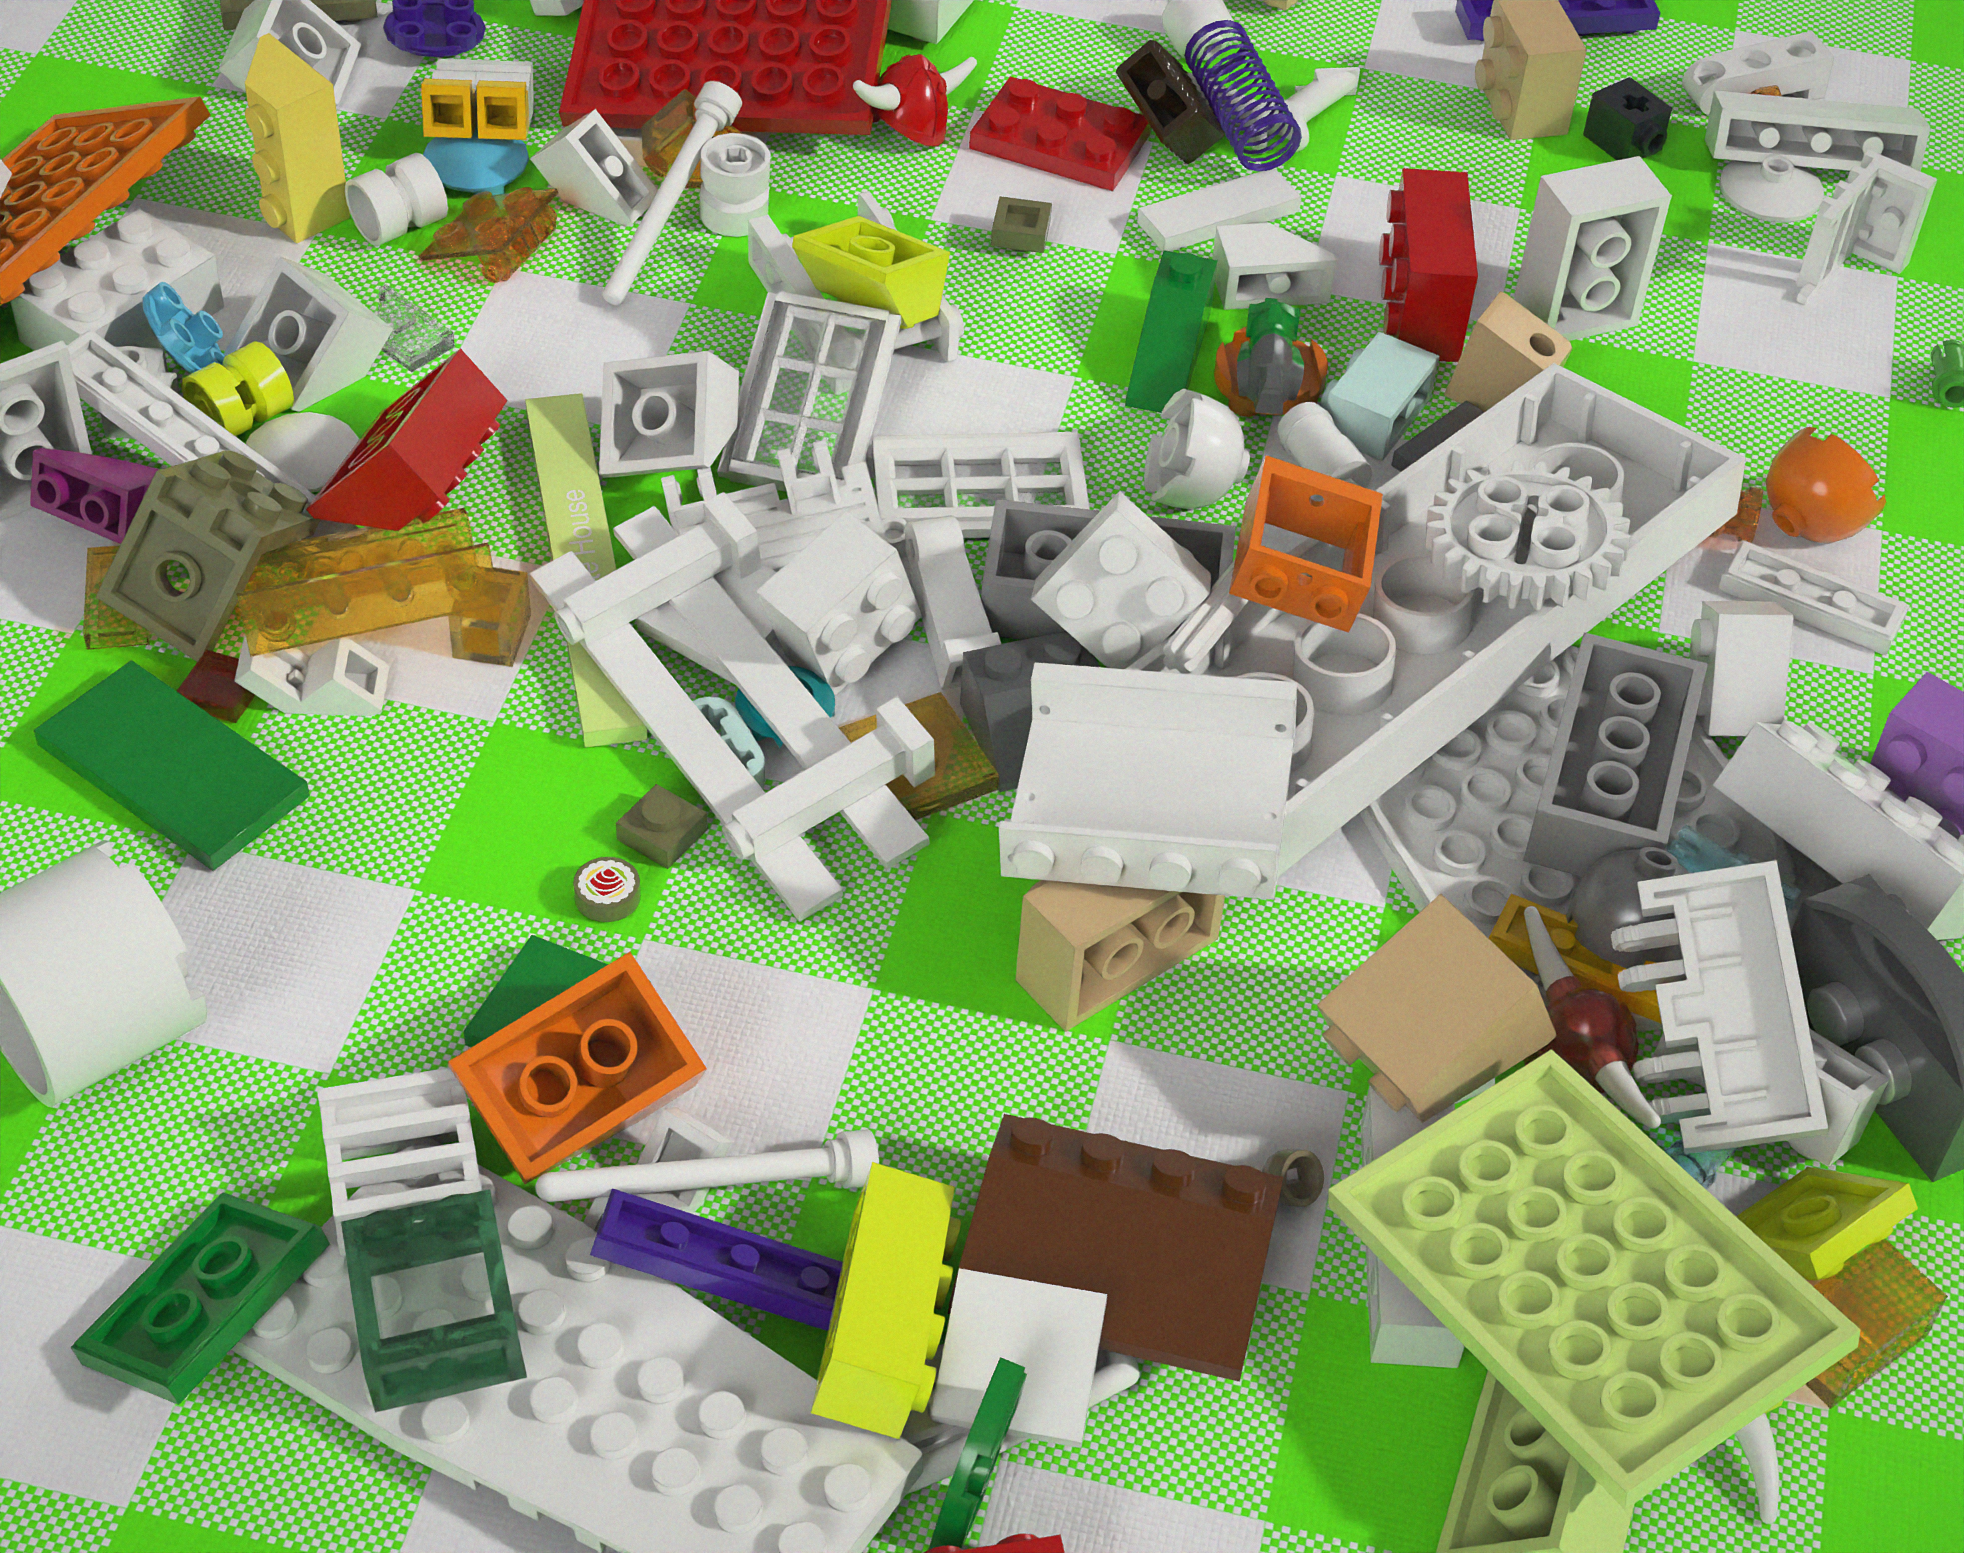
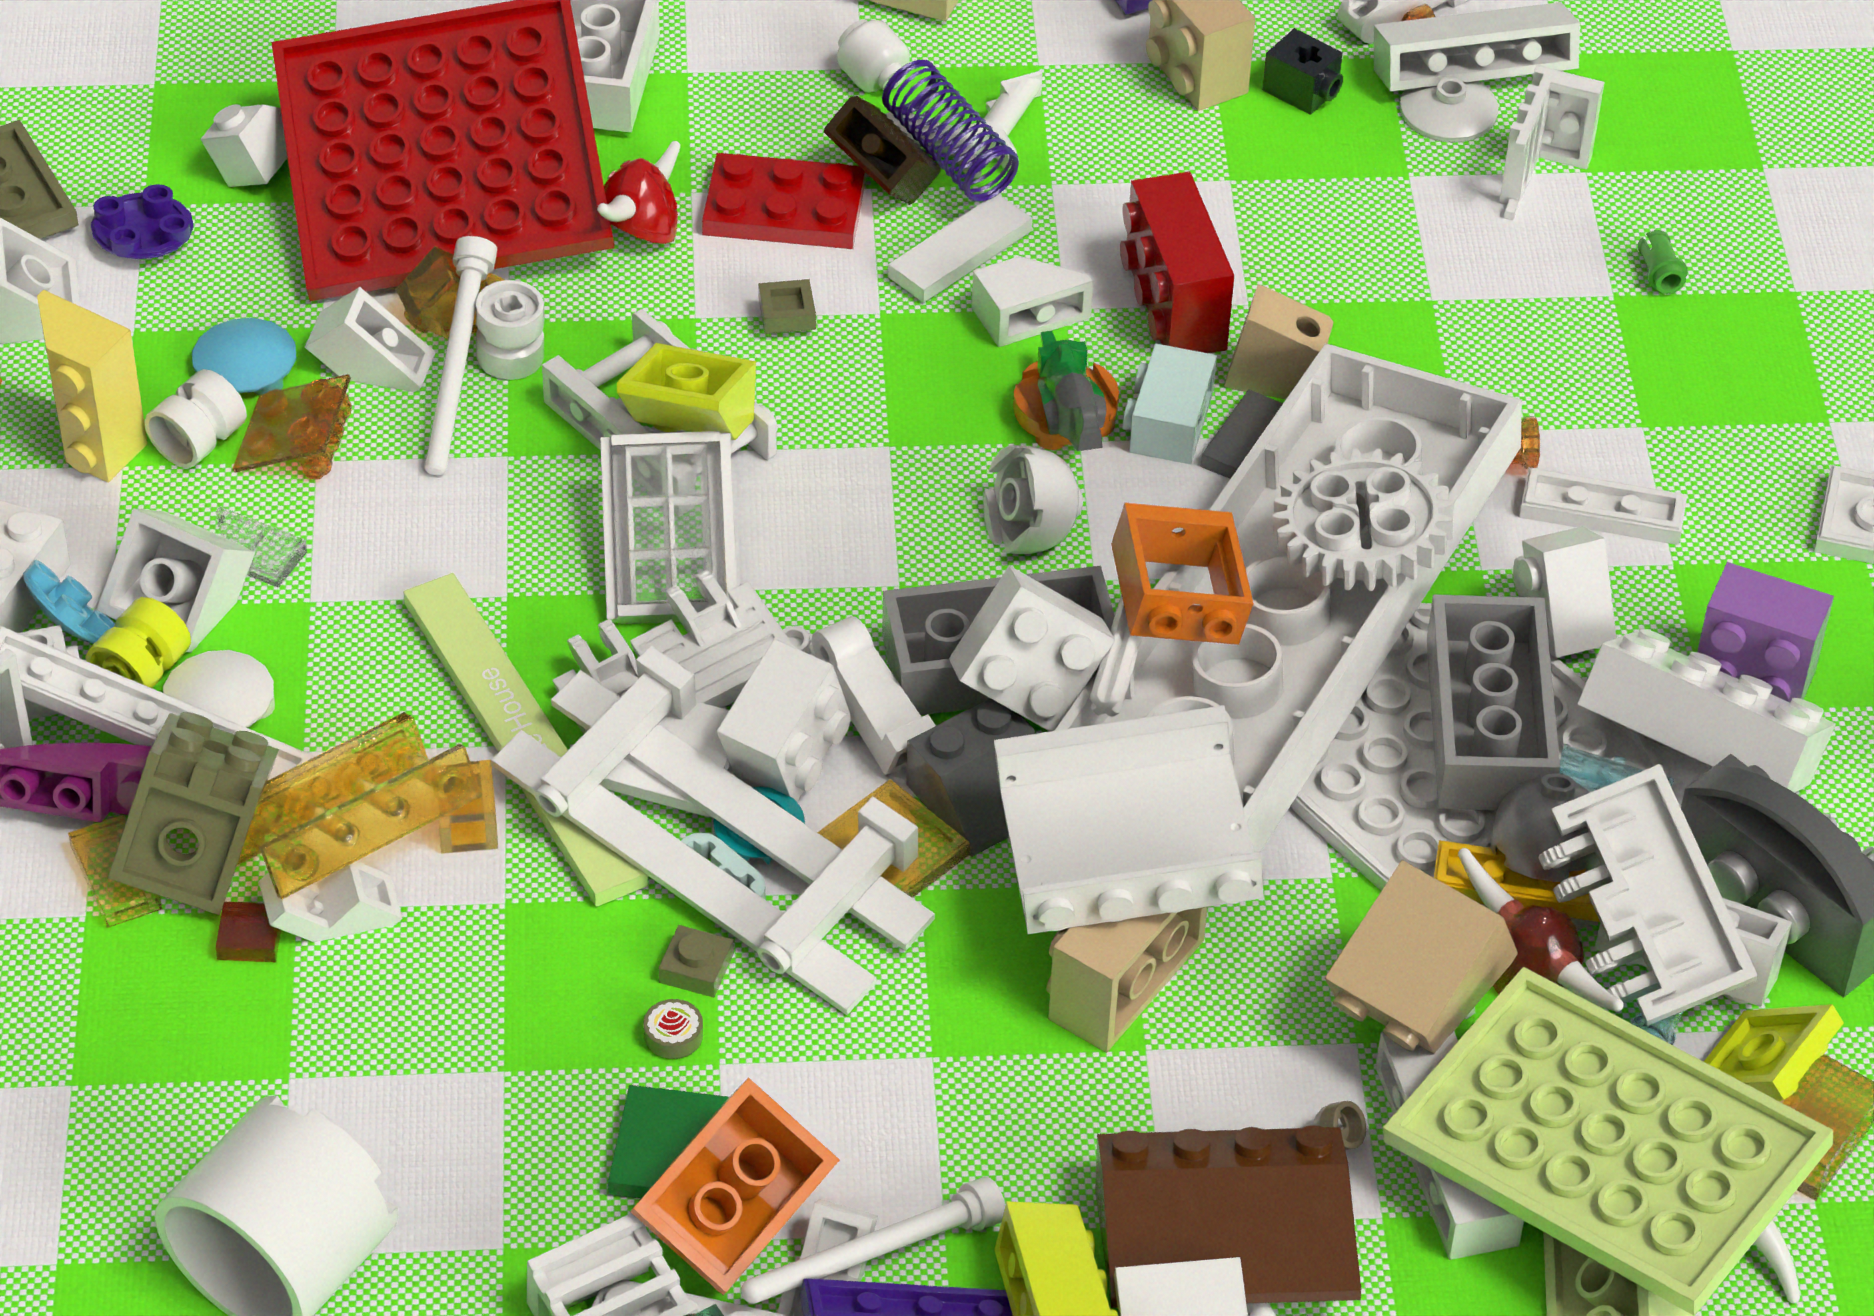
camera: 15 degrees left, 0 degrees up
(172, 764) = (239, 1013): green tile -> none
(414, 450) = (334, 668): red slope -> none
(480, 93) = (227, 283): yellow hips -> none
(666, 413) = (549, 579): white slope -> none
(967, 473) = (844, 568): white piece -> none
(1172, 329) = (966, 385): green slope -> none
(1318, 445) = (1140, 470): white piece -> none
(1592, 247) = (1321, 219): white brick -> none
(1821, 489) = (1584, 405): orange cylinder -> none

